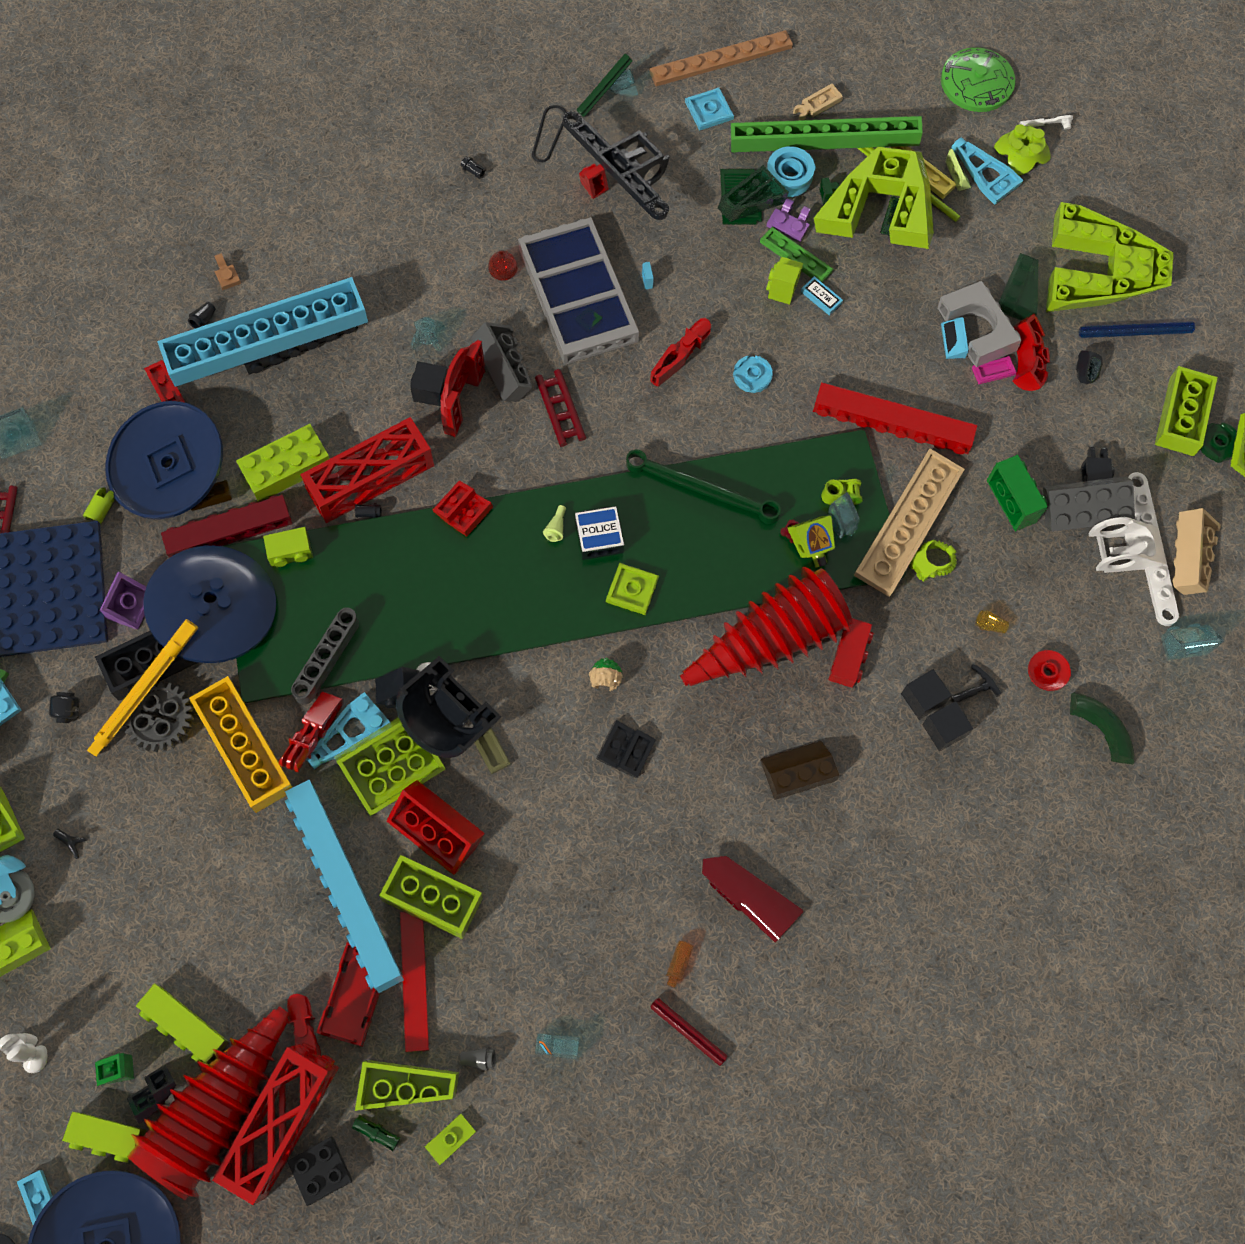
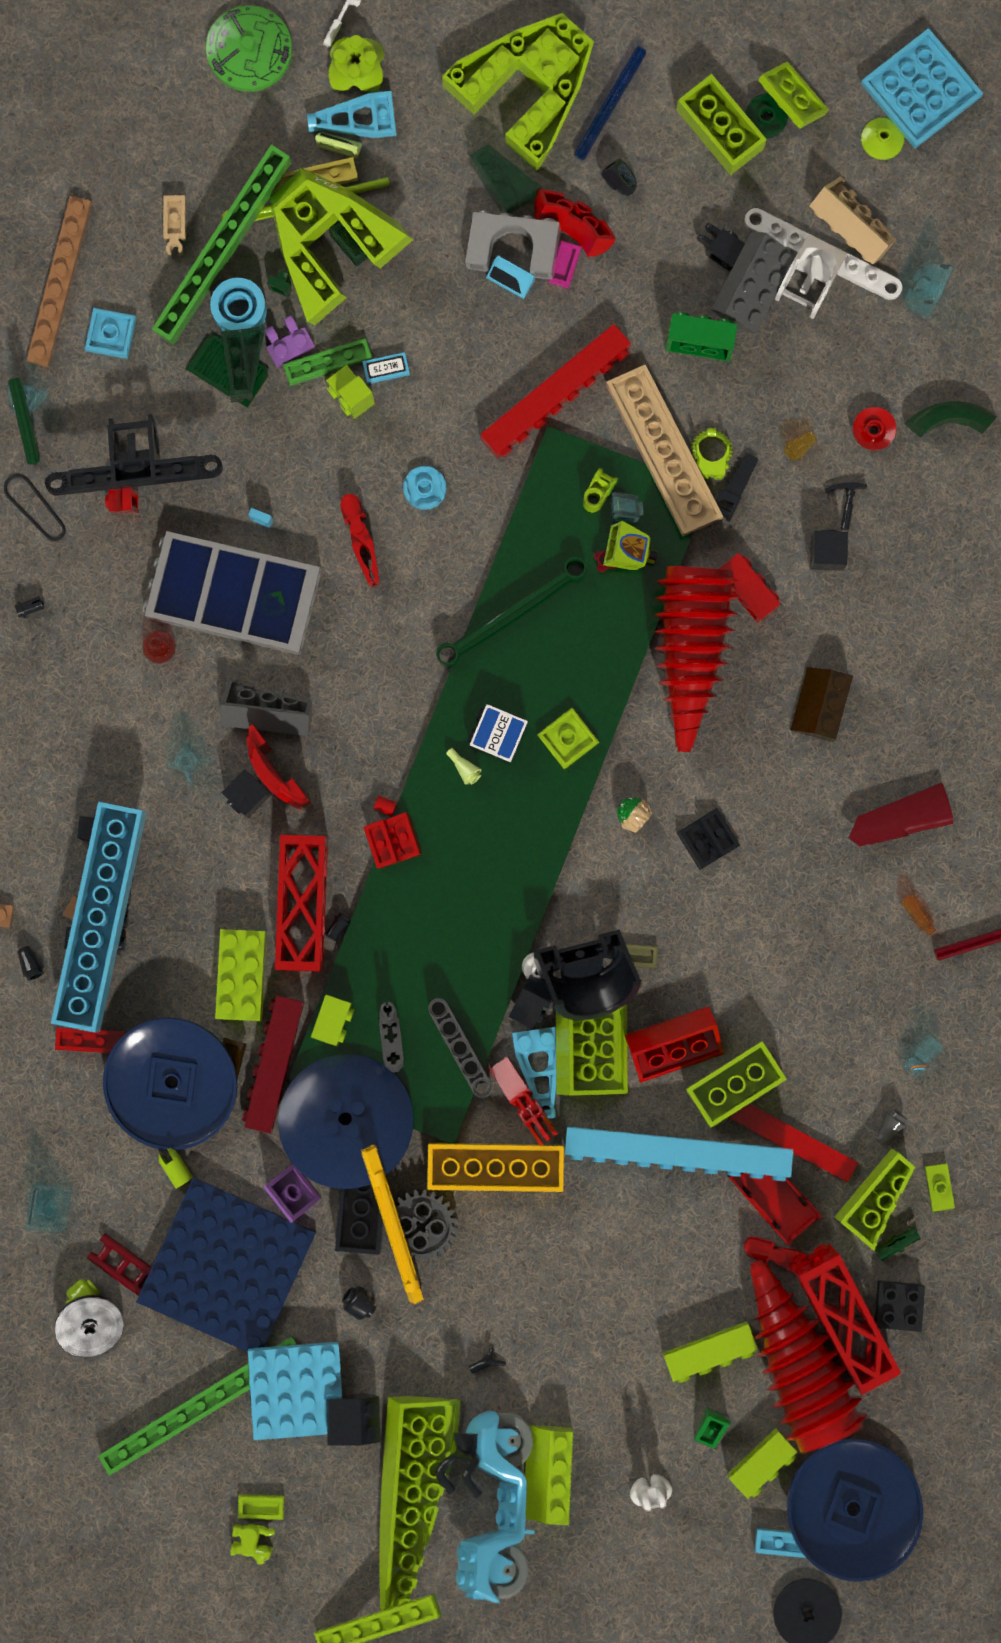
camera: 50 degrees left, 15 degrees up
(157, 1092) = (755, 1406): black slope -> none
(317, 588) = (395, 1048): none -> dark grey beam
(487, 487) = (385, 805): none -> red hinge
(563, 397) = (351, 699): dark red bar -> none
(922, 595) = (736, 485): none -> black piece
(947, 726) = (868, 552): black head -> none

